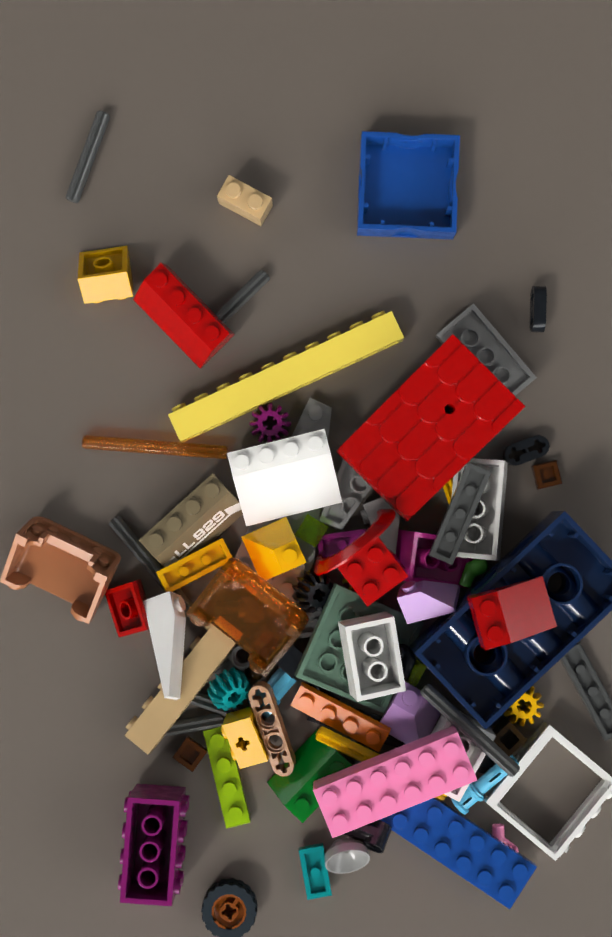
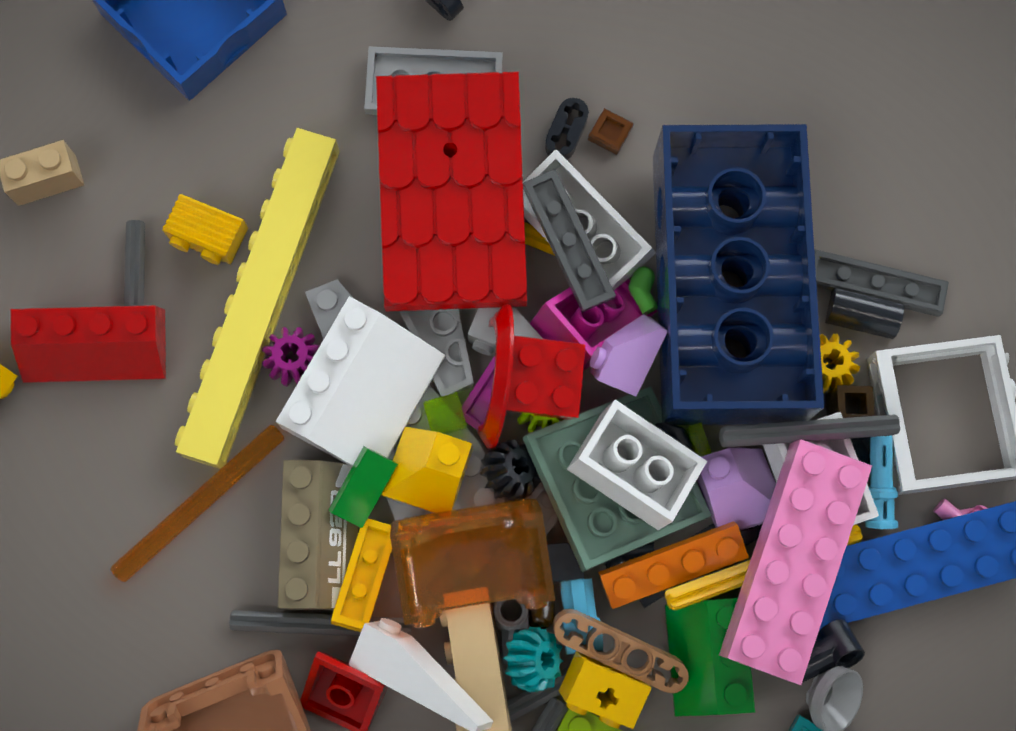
camera: 50 degrees left, 10 degrees down
(236, 525) = (362, 487): none -> green tile
(294, 314) = (204, 230): none -> yellow brick
(511, 612) = (720, 269): red slope -> none
(568, 699) = (864, 313): none -> black brick

